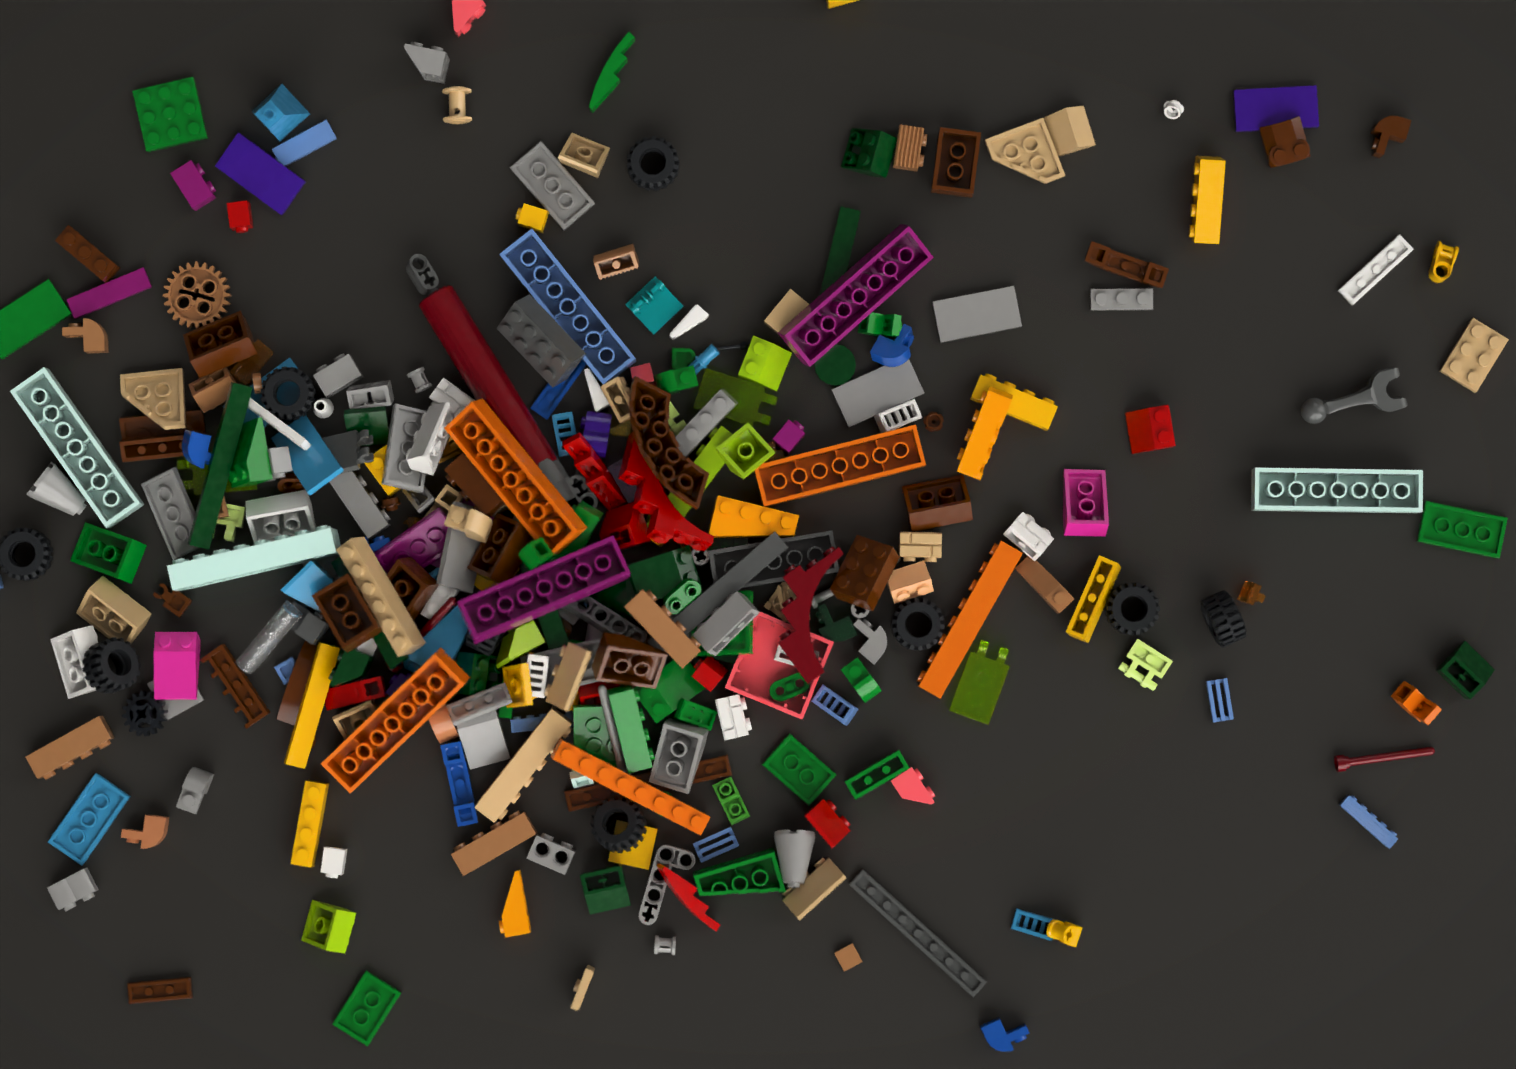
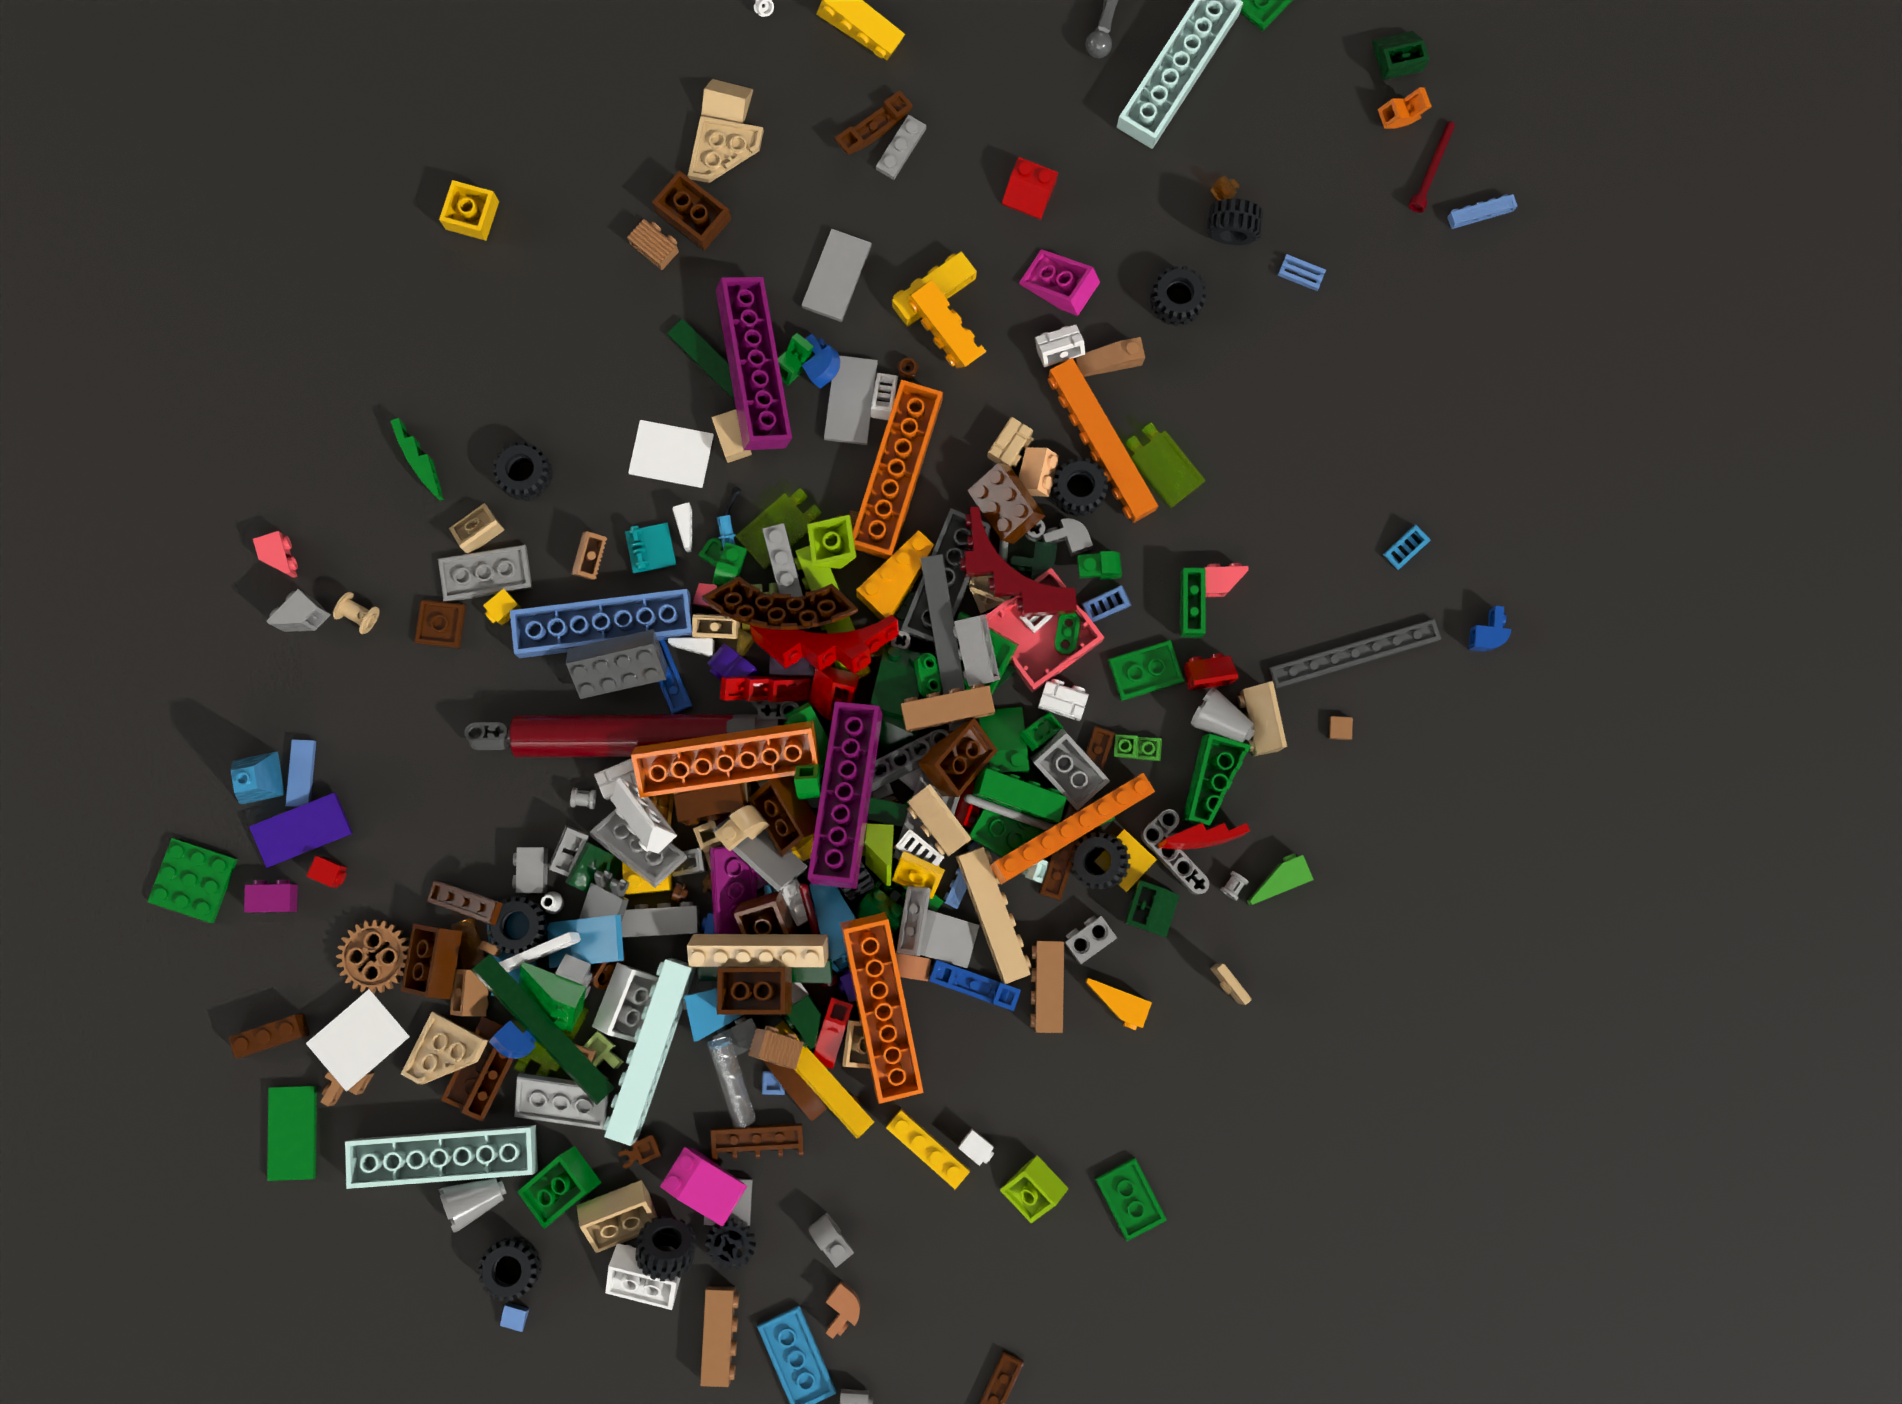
camera: 65 degrees left, 5 degrees down
(109, 293) = (323, 1012): magenta tile -> none
(125, 325) = (357, 1040): none -> white sticker
(281, 340) = (464, 902): none -> reddish brown tile
(313, 657) = (776, 1048): none -> medium nougat brick
(489, 176) = (440, 624): none -> reddish brown tile
(562, 416) = (710, 685): dark azure slope -> none
(697, 982) = (1284, 877): none -> bright green slope
(699, 851) = (1171, 766): medium blue tile -> none
(709, 672) = (1011, 696): red brick -> none
(743, 272) = (671, 453): none -> white sticker
(764, 363) = (763, 481): lime slope -> none
(789, 436) = (842, 496): magenta brick -> none
(836, 366) = (806, 422): dark green tile -> none
(869, 152) = (635, 280): dark green slope -> none
(937, 503) = (982, 406): reddish brown slope -> none
(1064, 932) = (1430, 523): yellow piece -> none
(1093, 599) = (1150, 322): yellow brick -> none
(1148, 658) = (1230, 309): yellowish green plate -> none

